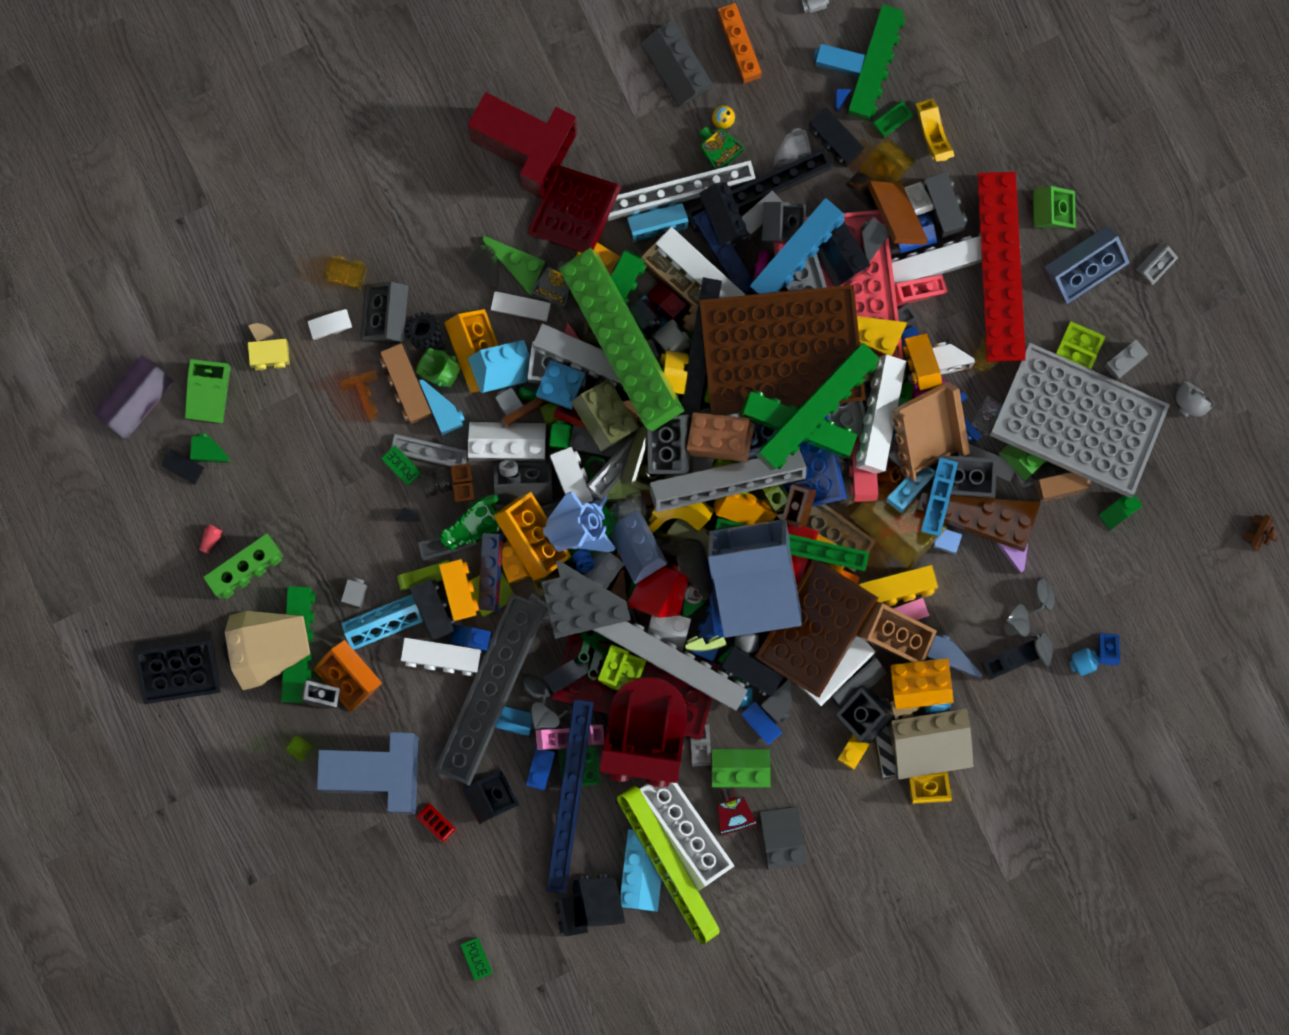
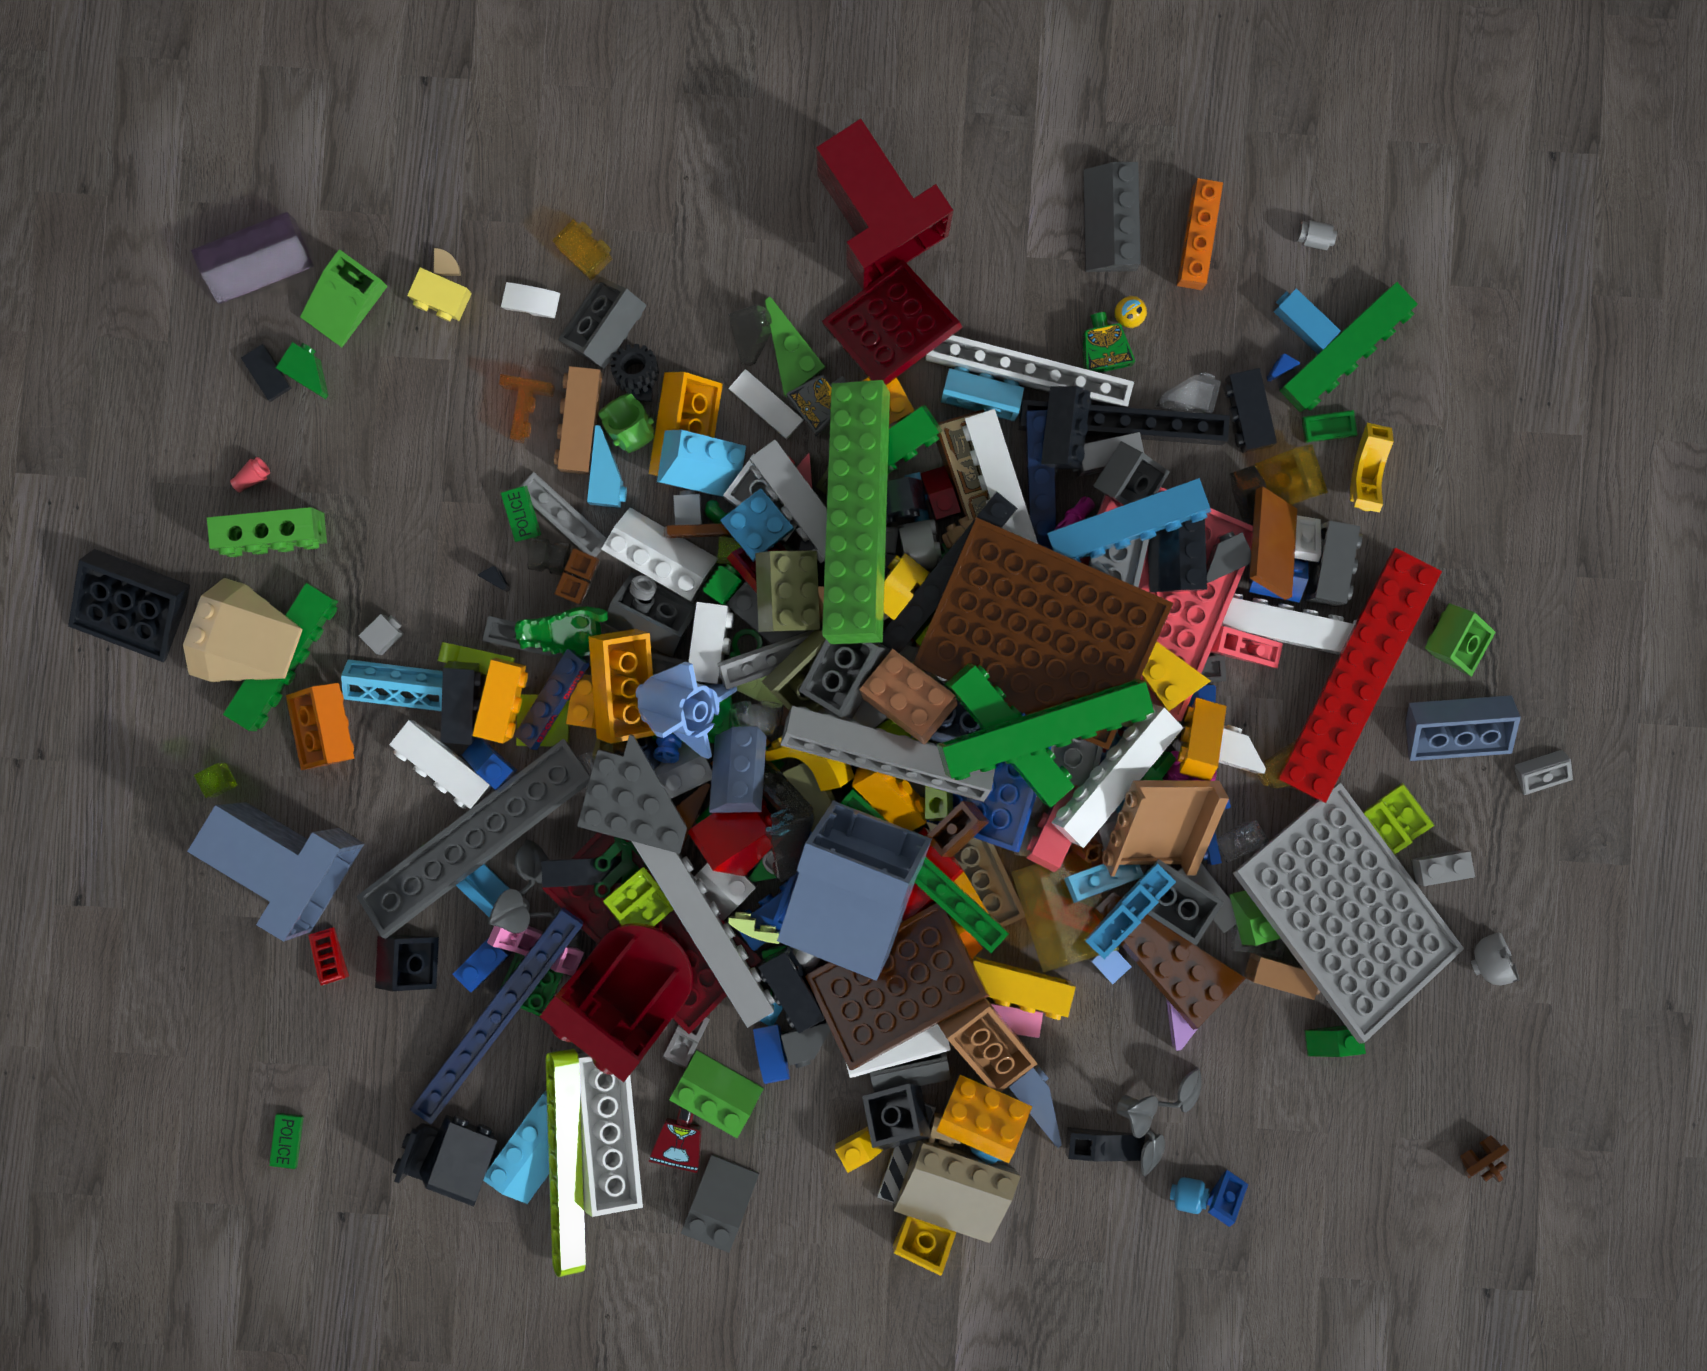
camera: 25 degrees right, 5 degrees up
(320, 695) = (270, 732): dark grey slope -> none

